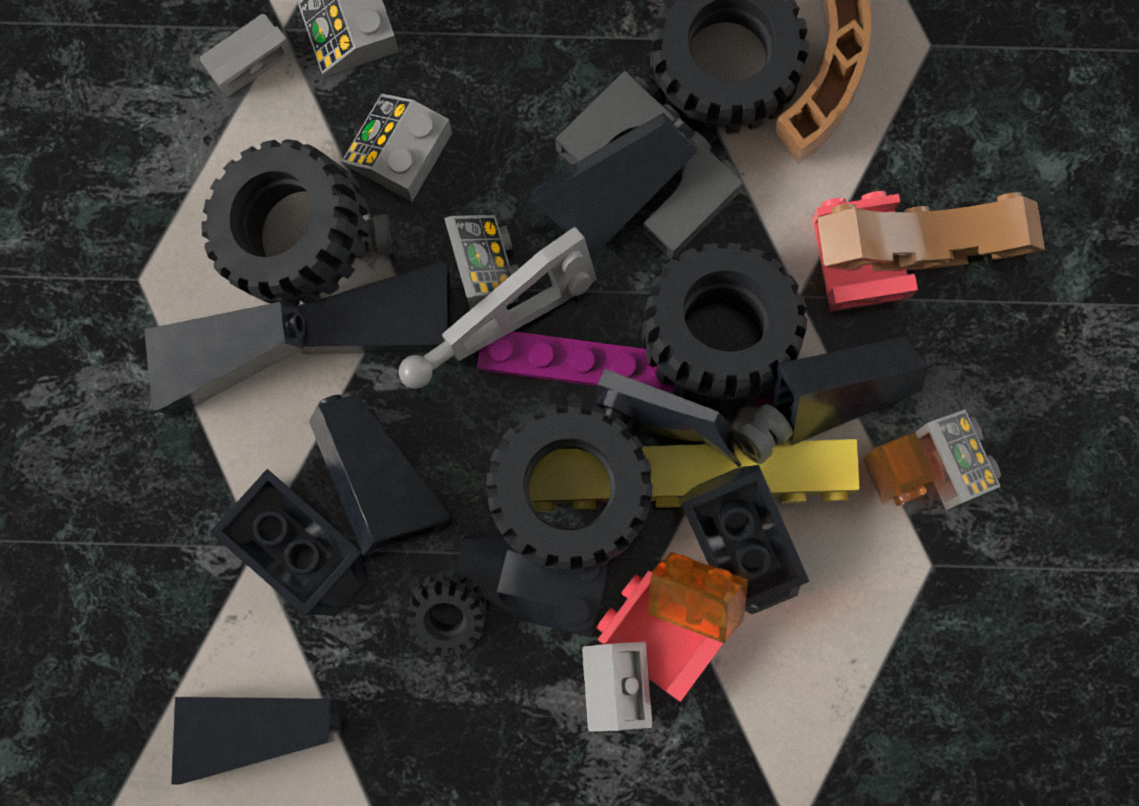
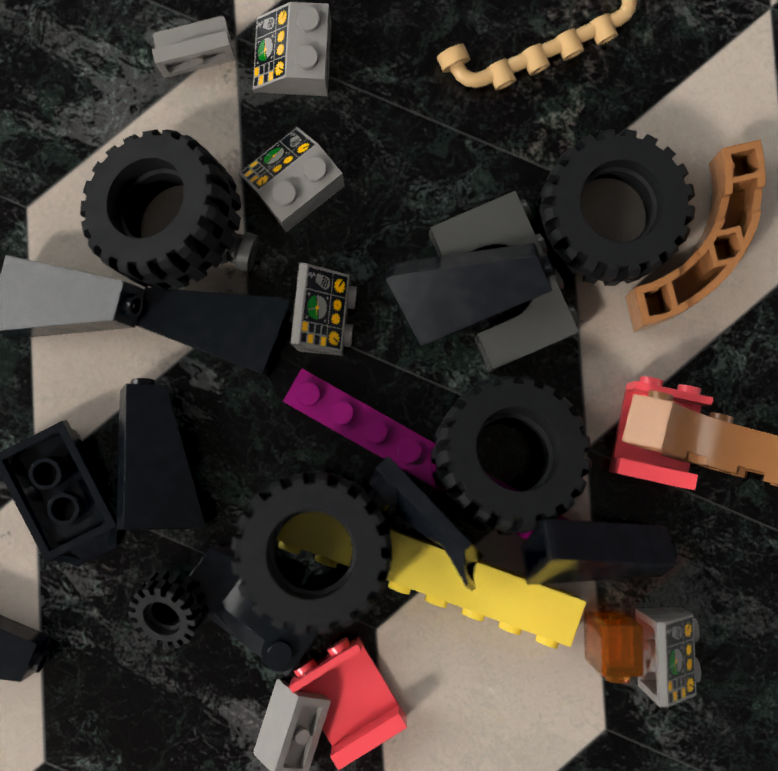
camera: 20 degrees right, 5 degrees up
(571, 275) = (395, 351): light grey plate -> none
(697, 597) = (389, 688): clear orange brick -> none
(746, 535) = (451, 650): black slope -> none
(762, 434) = (505, 568): dark grey wheel -> none

